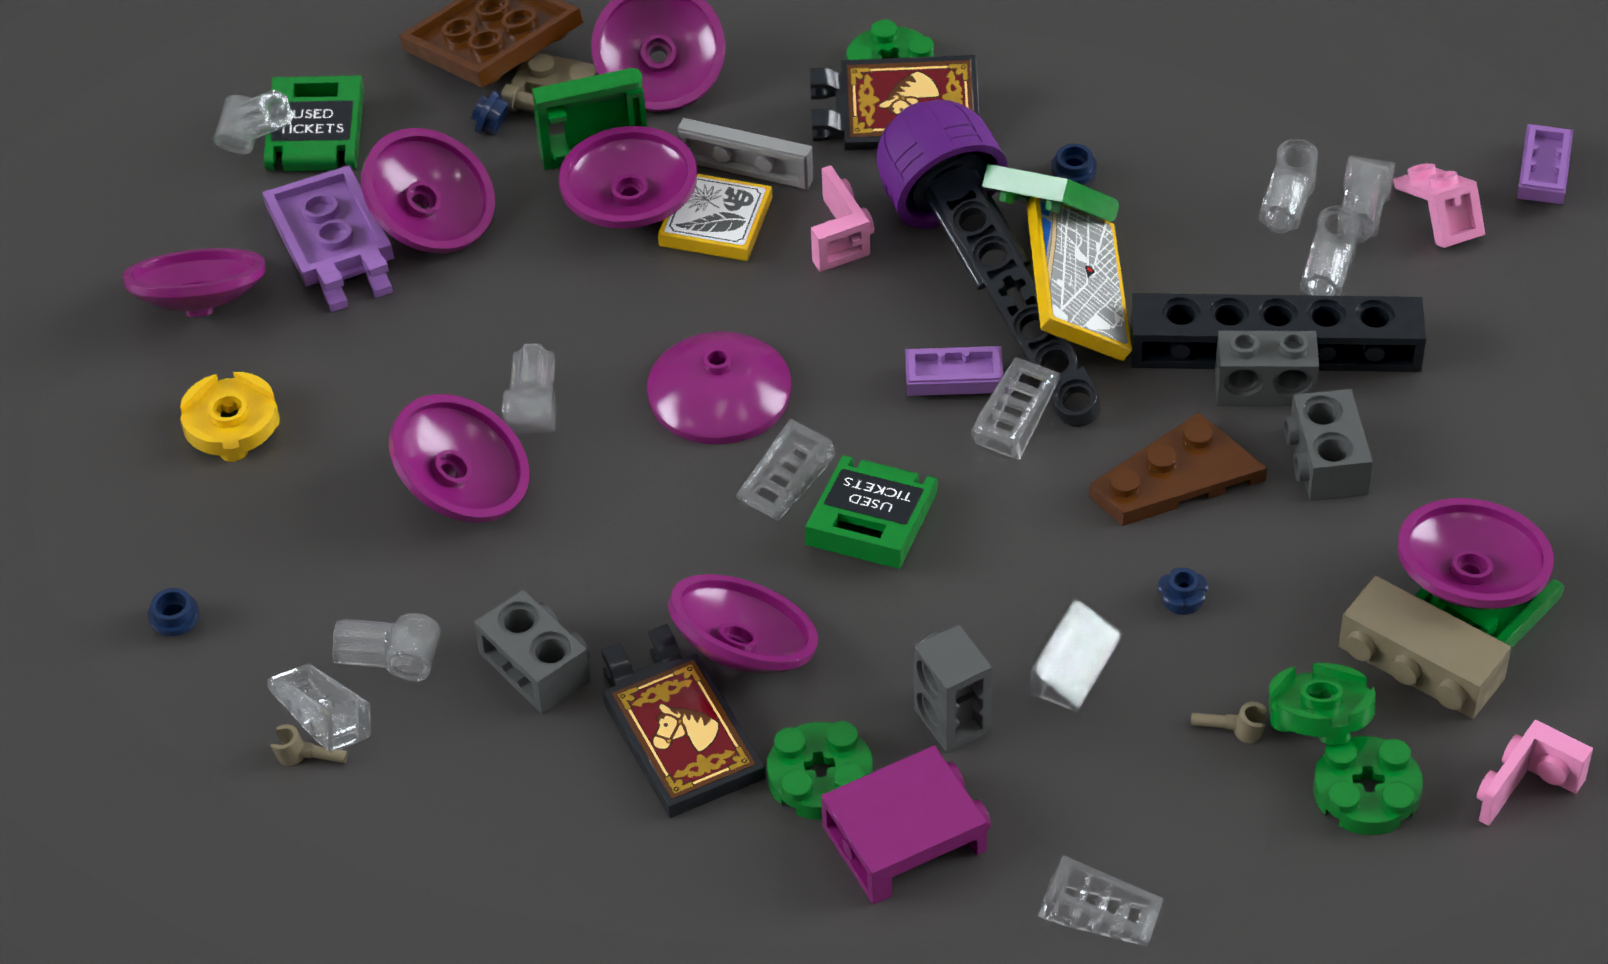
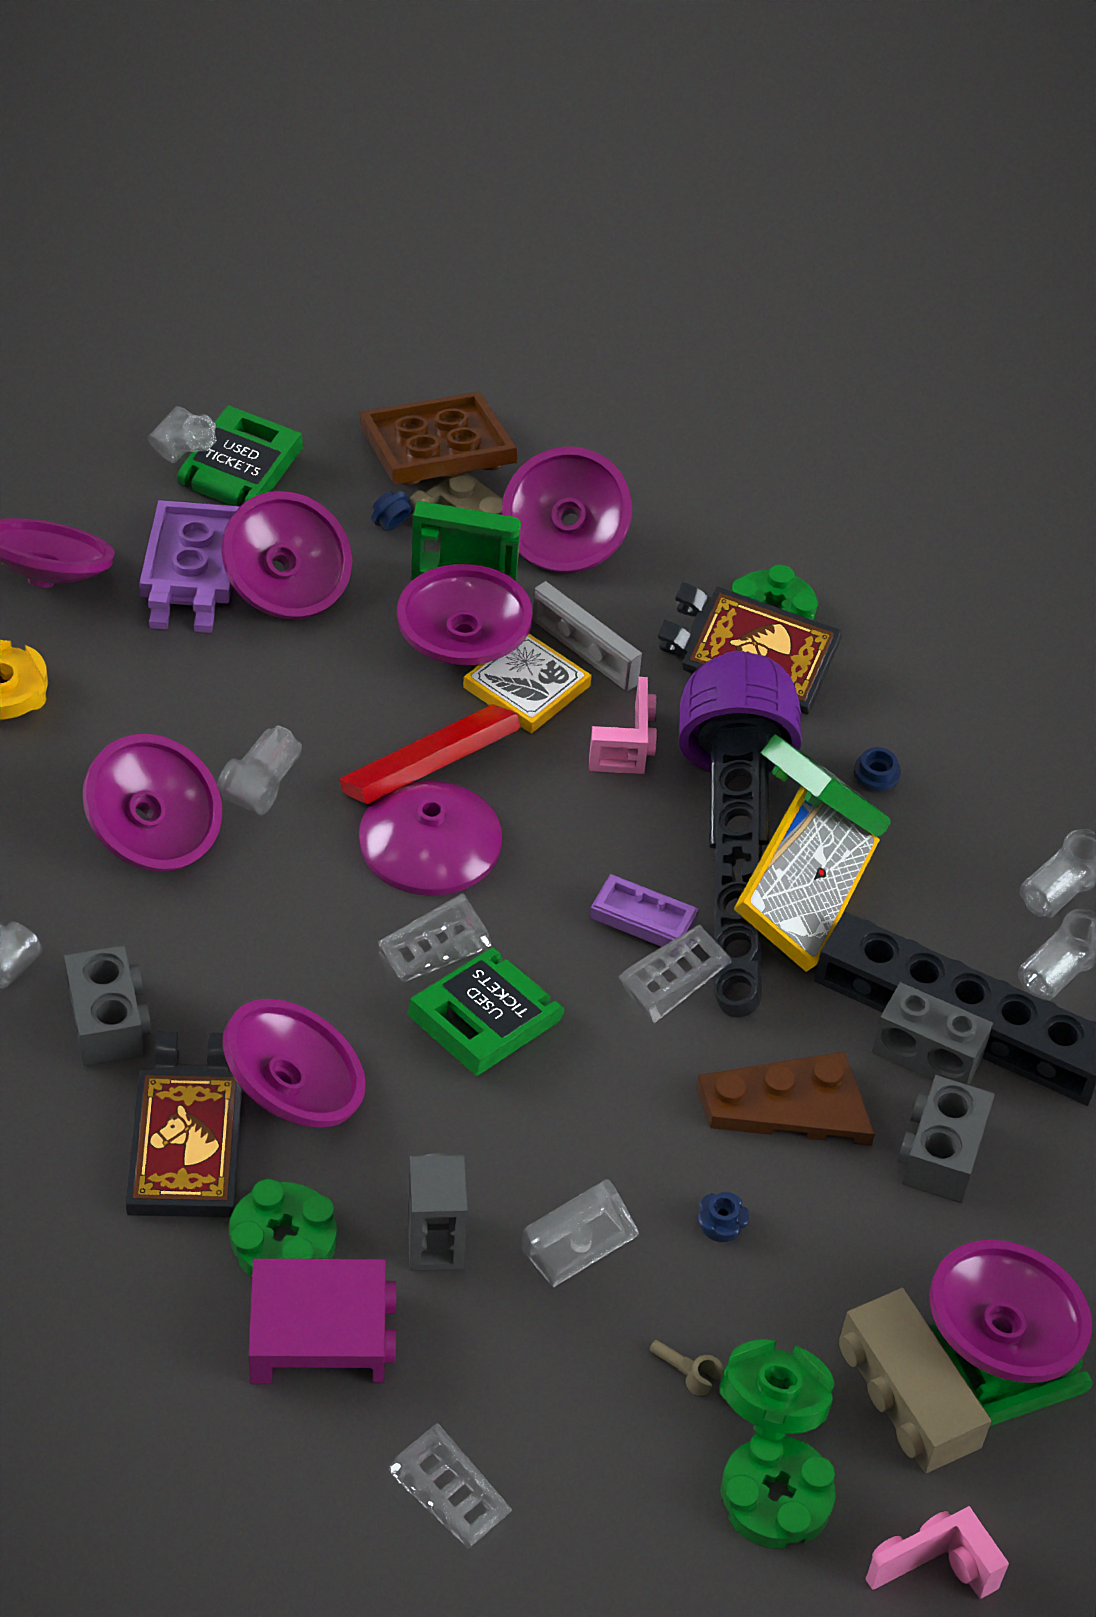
camera: 20 degrees right, 0 degrees up
(673, 314) = (429, 754): none -> red tile

